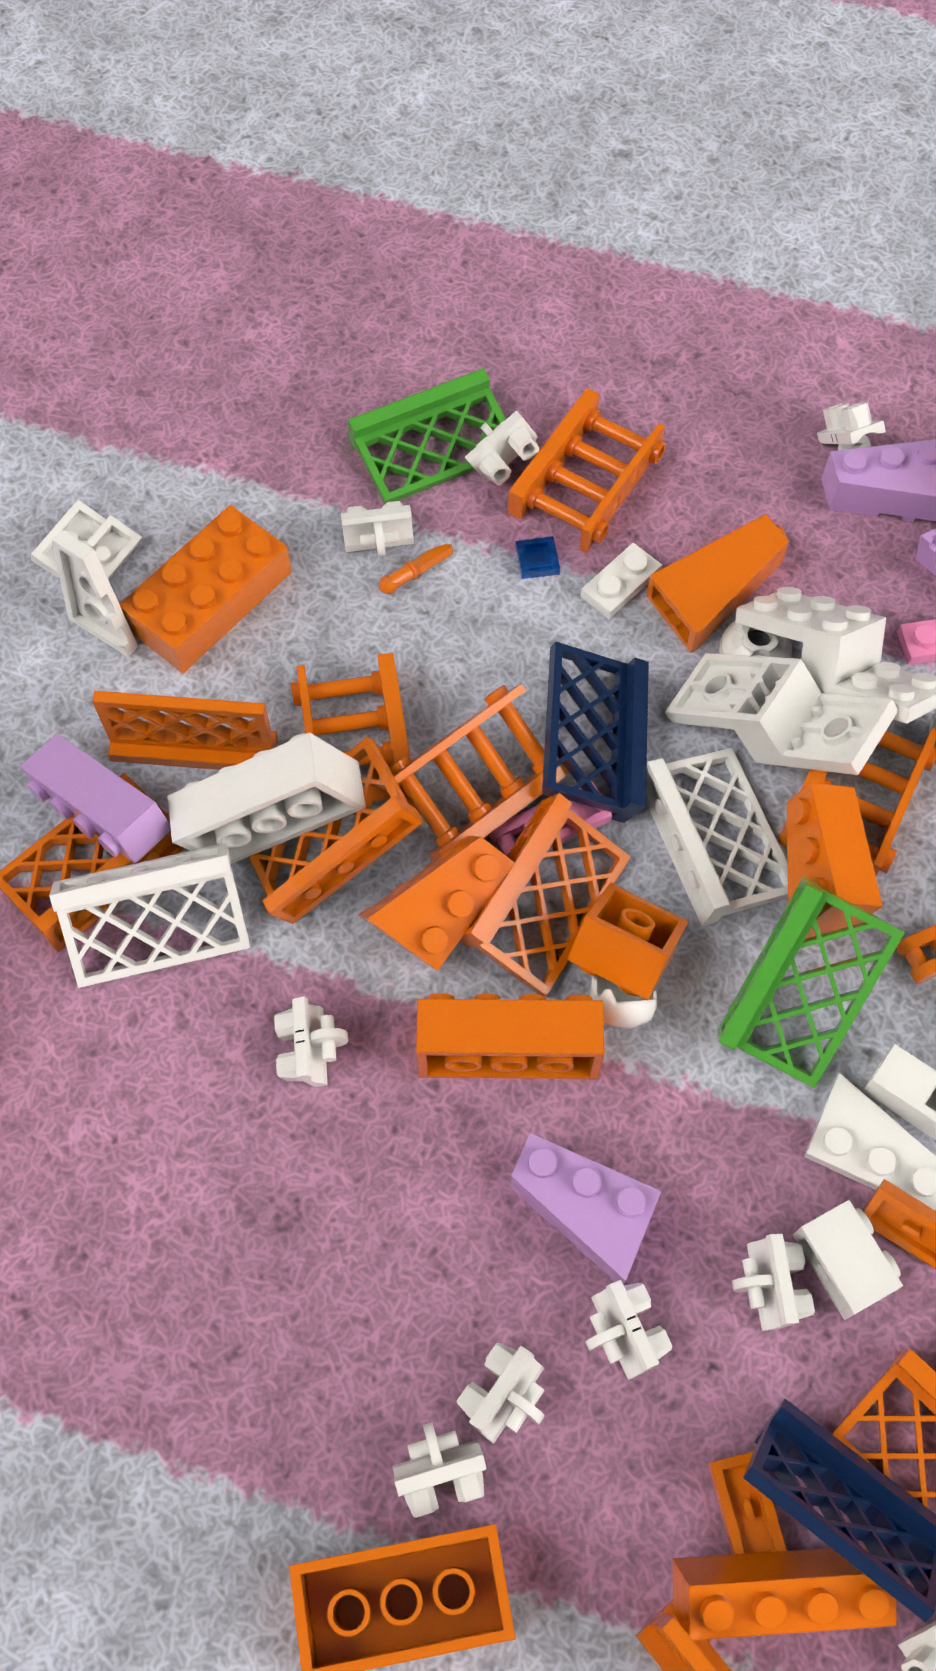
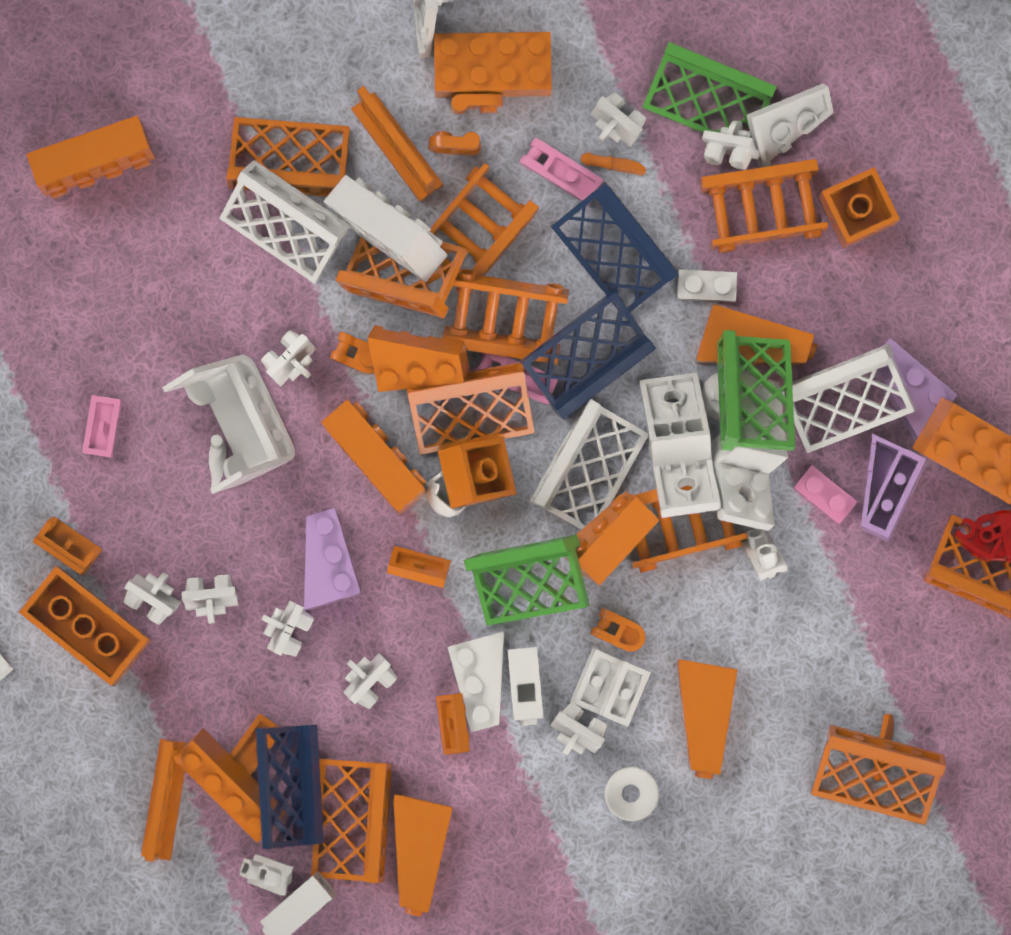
camera: 45 degrees right, 20 degrees up
(95, 798) = (315, 133): lavender brick -> none
(173, 1340) = (102, 426): none -> bright pink plate
(234, 625) = (485, 102): none -> orange plate
(253, 681) = (445, 143): none -> orange plate
(276, 1527) = (67, 545): none -> orange hinge
(319, 1154) = (244, 414): none -> white windscreen
(343, 1233) = (217, 457): none -> white bar
(376, 615) = (561, 170): none -> bright pink plate
(385, 961) = (362, 361): none -> orange plate
(502, 589) = (633, 231): none -> dark blue fence
(525, 387) = (785, 121): none -> white wing
(537, 557) = (681, 225): clear blue tile -> none
(669, 390) = (858, 207): none -> orange brick
(681, 1104) = (418, 566): none -> orange plate
(779, 609) = (730, 392): none -> bright green fence
(833, 511) = (841, 373): none -> white fence
(848, 1259) = (409, 705): white brick -> none
(849, 425) = (924, 334): white hips -> none

